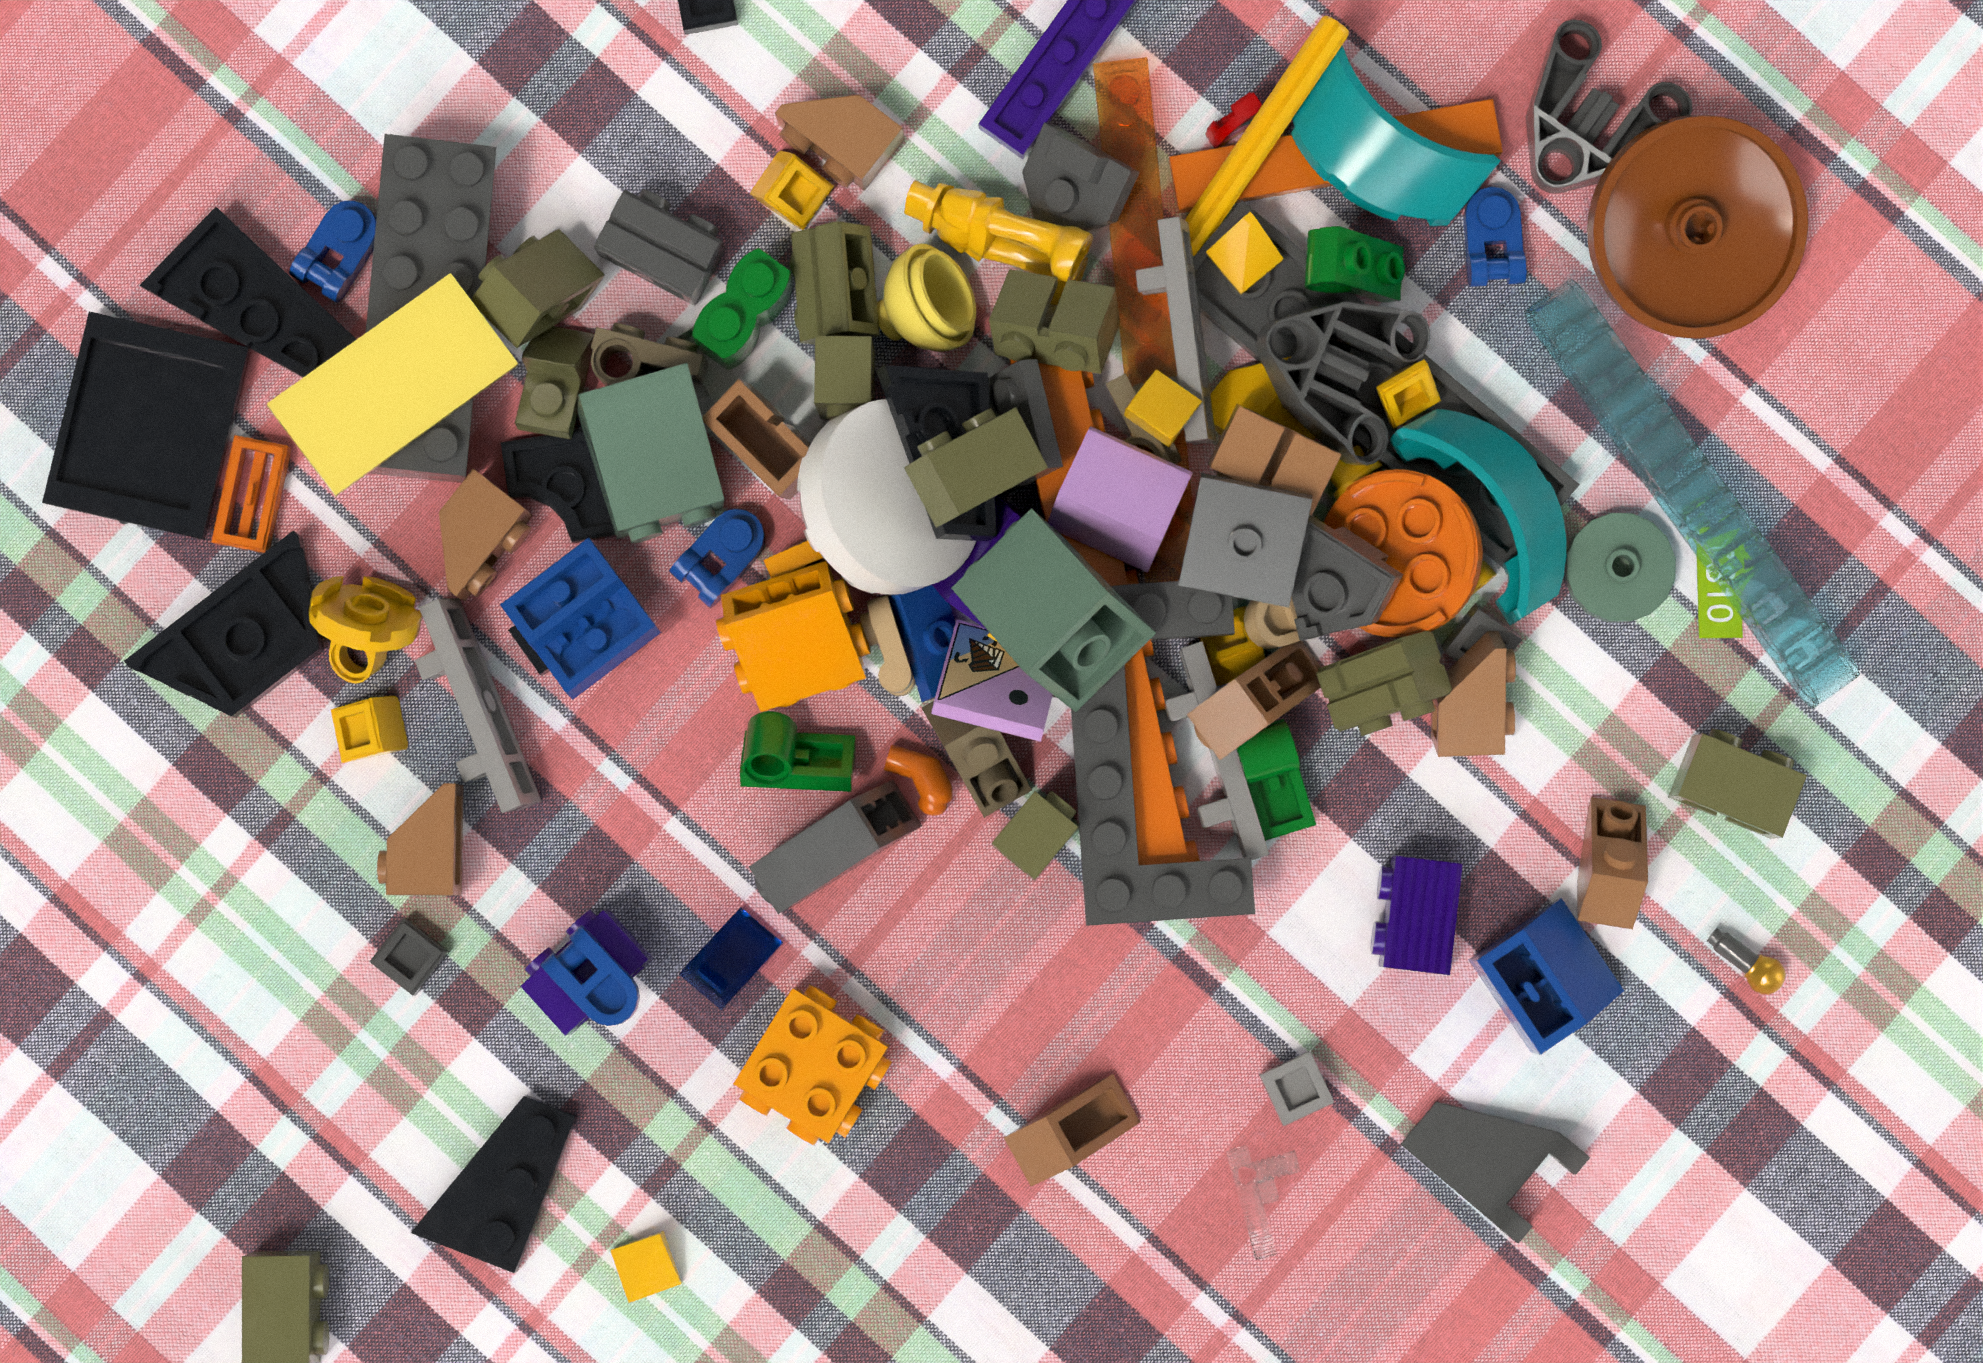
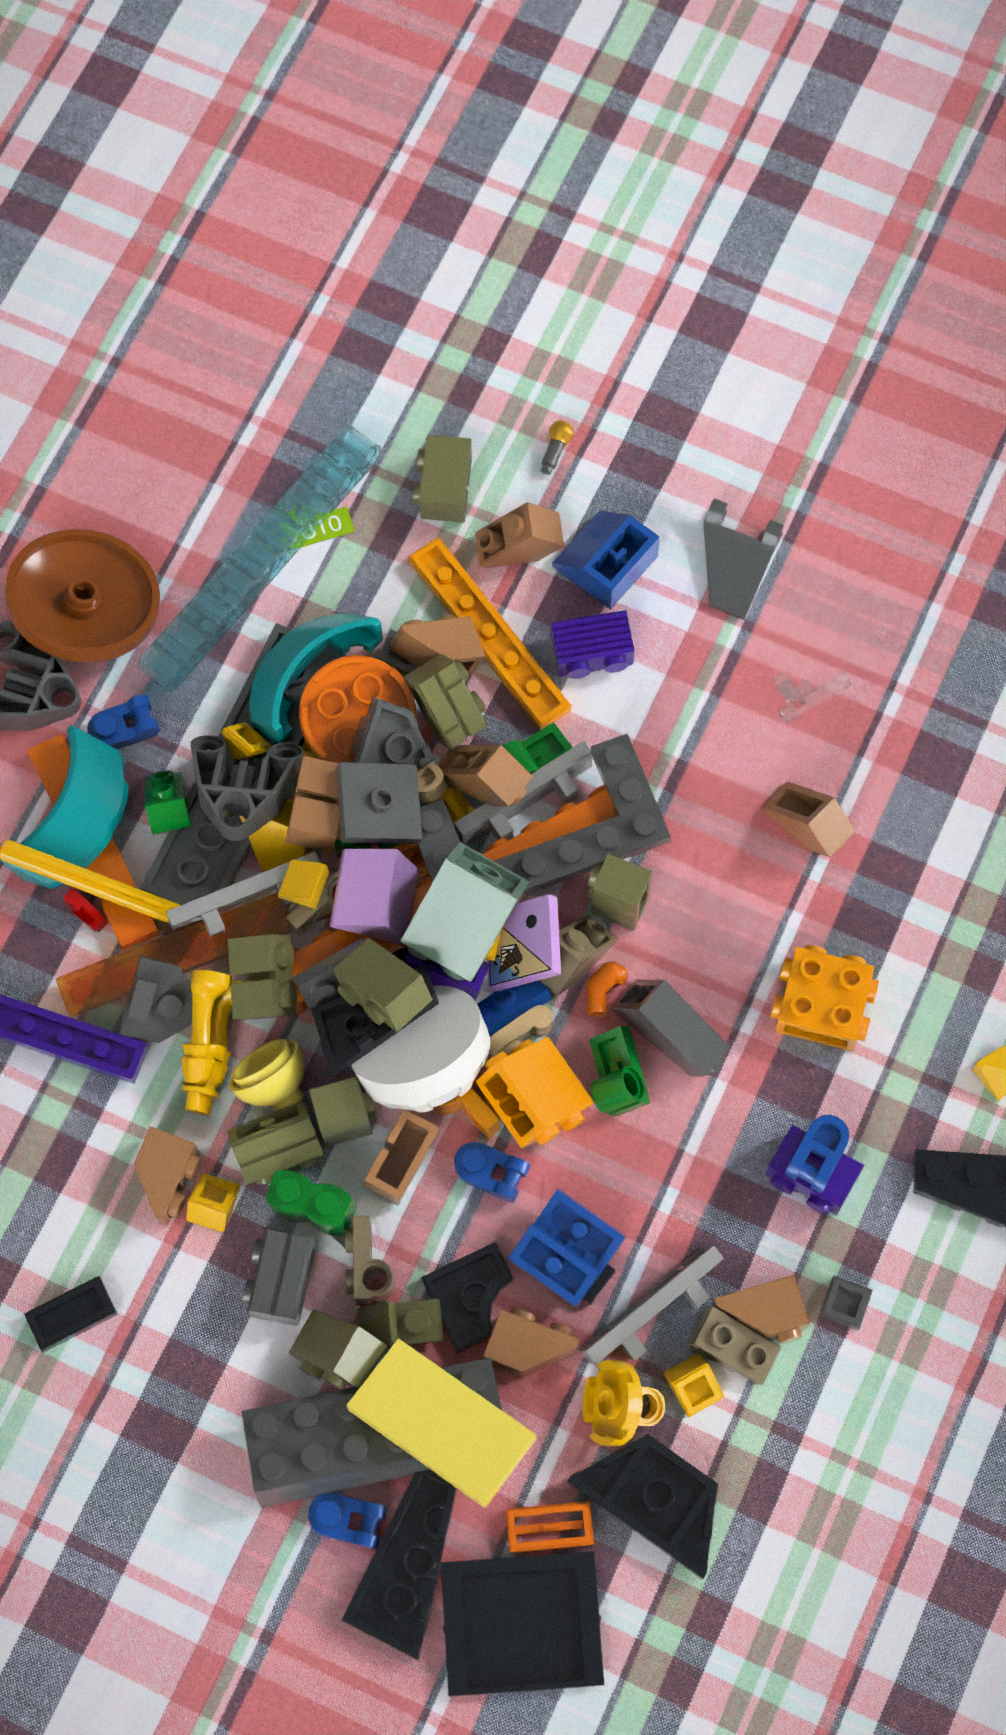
camera: 110 degrees left, 15 degrees down
(395, 791) = (733, 1345): none -> dark tan plate
(651, 453) = (434, 1232): sand green slope -> none
(731, 959) = (772, 1074): clear blue slope -> none
(1245, 253) = (177, 873): yellow slope -> none
(1296, 1088) = (731, 688): light grey plate -> none
(1483, 779) = (500, 645): none -> light orange tile
(1591, 574) = (340, 596): sand green plate -> none

